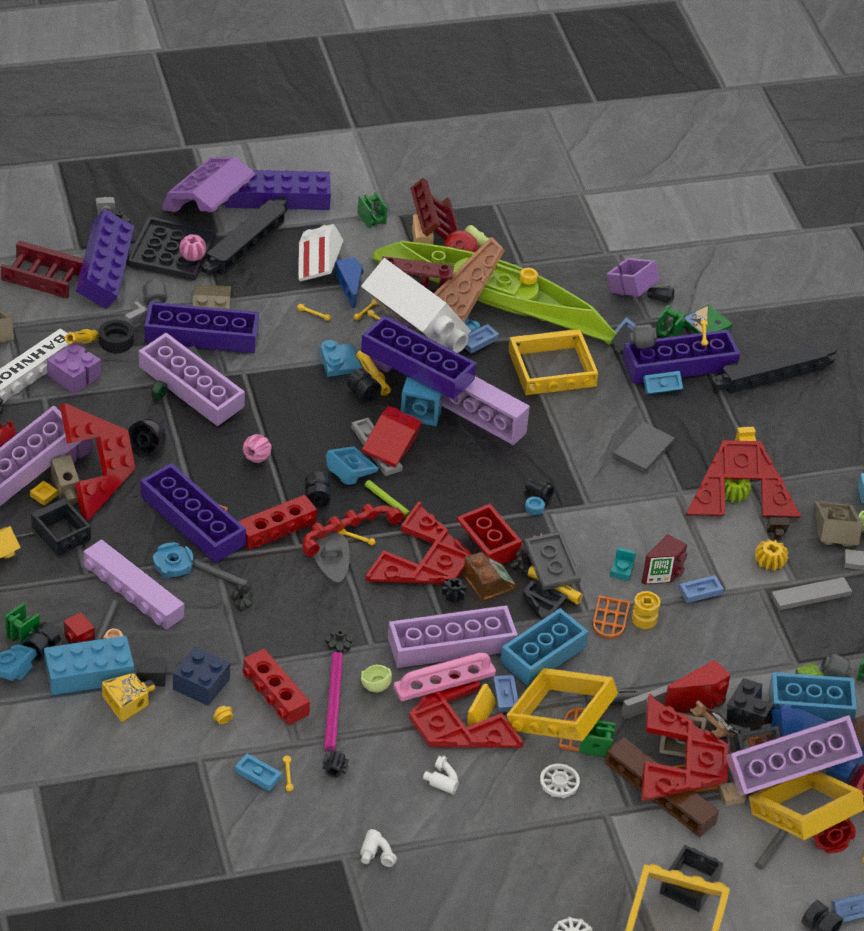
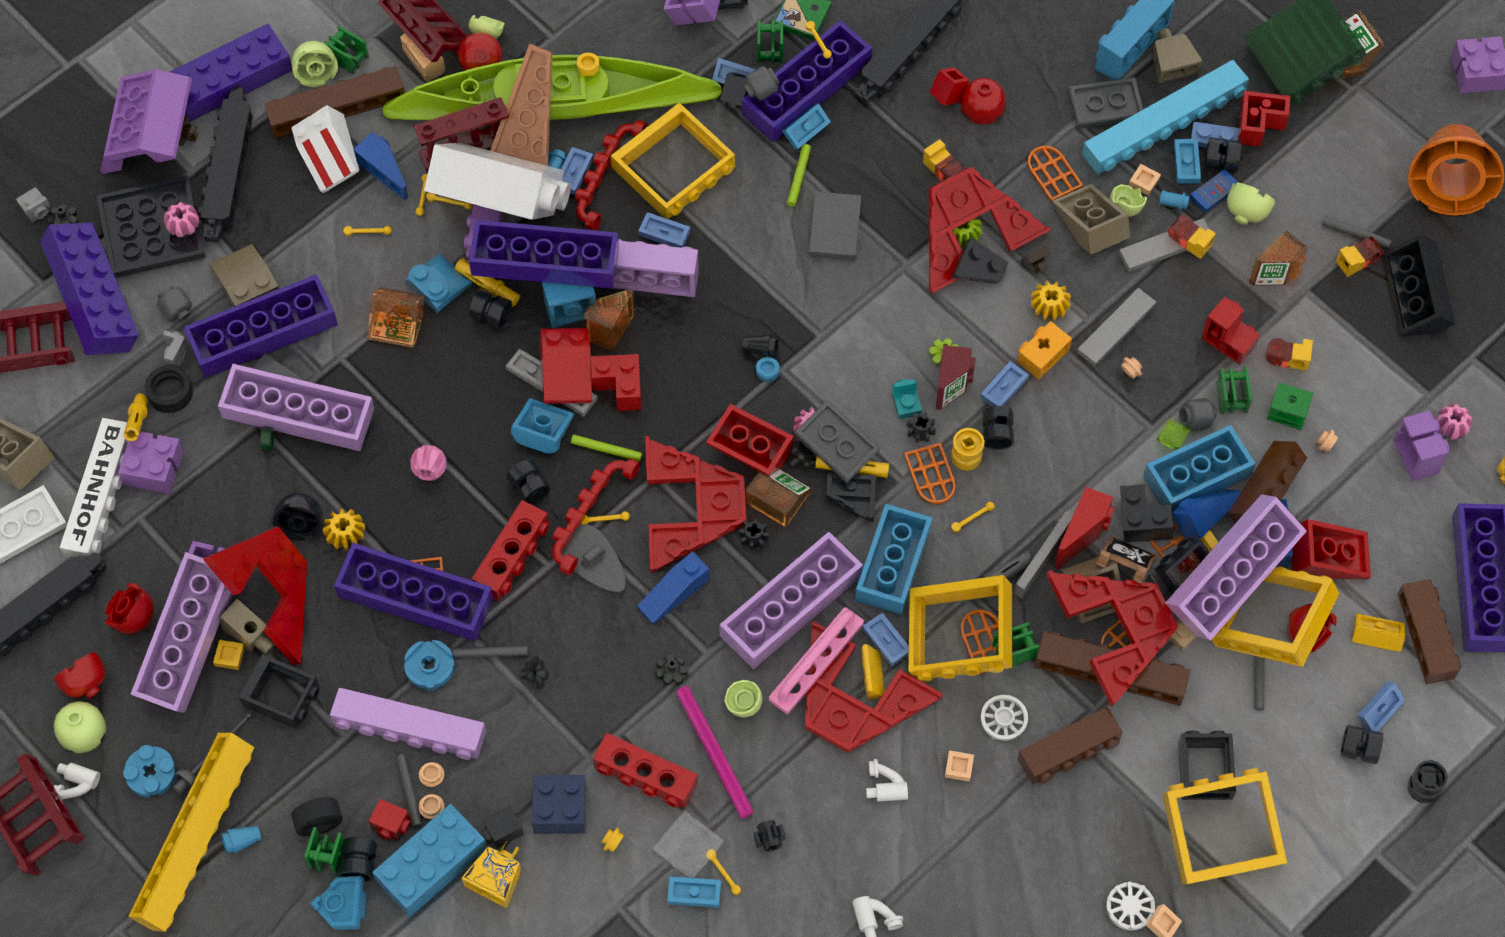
camera: 25 degrees left, 20 degrees up
(35, 593) = (318, 813): none -> black tyre
(127, 620) = (431, 774): none -> light nougat plate
(173, 455) = (335, 526): none -> yellow gear
(231, 207) = (187, 132): none -> dark brown tile
(274, 745) = (688, 846): none -> clear tile
(296, 363) = (395, 316): none -> clear orange slope
(344, 207) = (314, 63): none -> yellowish green cylinder
(354, 235) = (345, 96): none -> reddish brown brick
(380, 593) = (674, 588): none -> blue slope
(425, 461) = (618, 374): none -> red brick
(442, 424) = (610, 318): none -> clear orange slope
(502, 342) = (594, 178): none -> red bar
(504, 791) = (959, 766): none -> light nougat plate
(517, 392) = (664, 230): none -> medium blue plate
(596, 817) = (1070, 746): none -> reddish brown brick
(606, 655) = (956, 527): none -> yellow hinge
(621, 584) = (921, 427): none -> black gear
(636, 410) = (798, 176): none -> lime bar
(677, 608) = (998, 427): none -> black wheel
(732, 510) = (979, 264): none -> black wing
(745, 581) = (1044, 349): none -> light orange brick
(783, 402) = (949, 86): none -> red brick
(804, 423) = (983, 101): none -> red cylinder
(805, 620) = (1131, 367): none -> light nougat plate
(832, 491) = (1060, 175): none -> orange window

